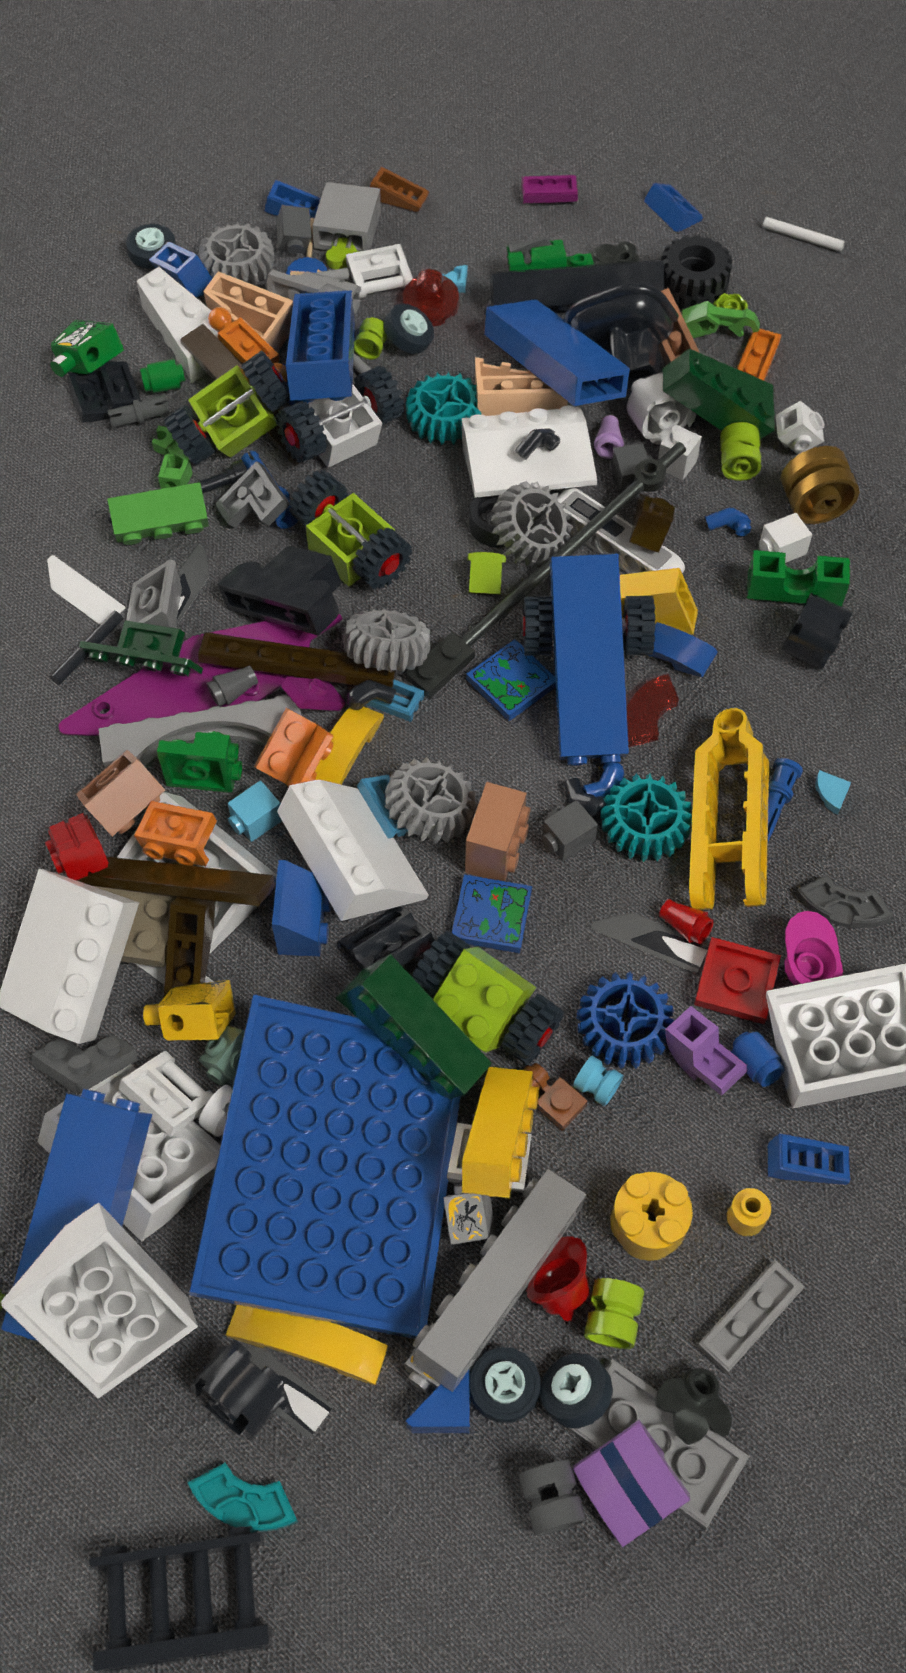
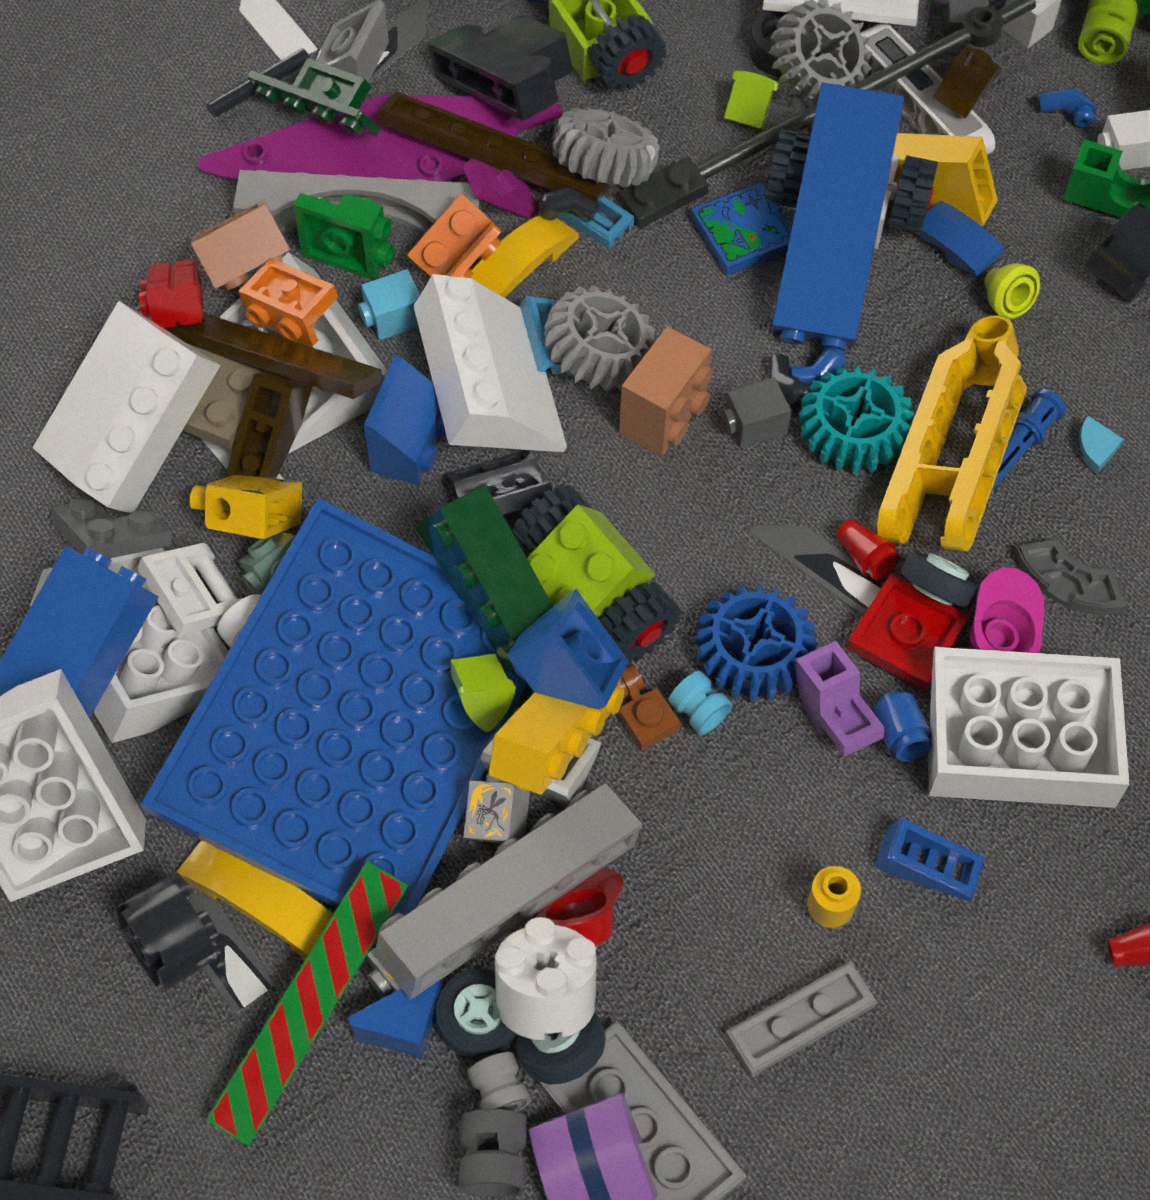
camera: 15 degrees right, 0 degrees up
(231, 685) = (407, 157): dark grey cone -> none
(241, 1503) = (130, 1058): teal tile -> none
(368, 1418) = (307, 1004): none -> tile
(429, 1117) = (483, 689): none -> lime tile
(492, 913) = (636, 485): tile -> none
(493, 1074) = (569, 655): none -> blue slope
(539, 1440) = (498, 1084): none -> light grey wheel
(554, 1346) = (545, 980): none -> white brick
(615, 1307) = (631, 972): lime wheel -> none
(647, 708) = (897, 298): clear red tile -> none
(670, 1206) = (717, 844): yellow brick -> none
(694, 1410) = (695, 1104): pearl dark grey plate -> none
(732, 681) = (1012, 289): none -> neon yellow brick
(752, 932) = (940, 579): none -> black wheel

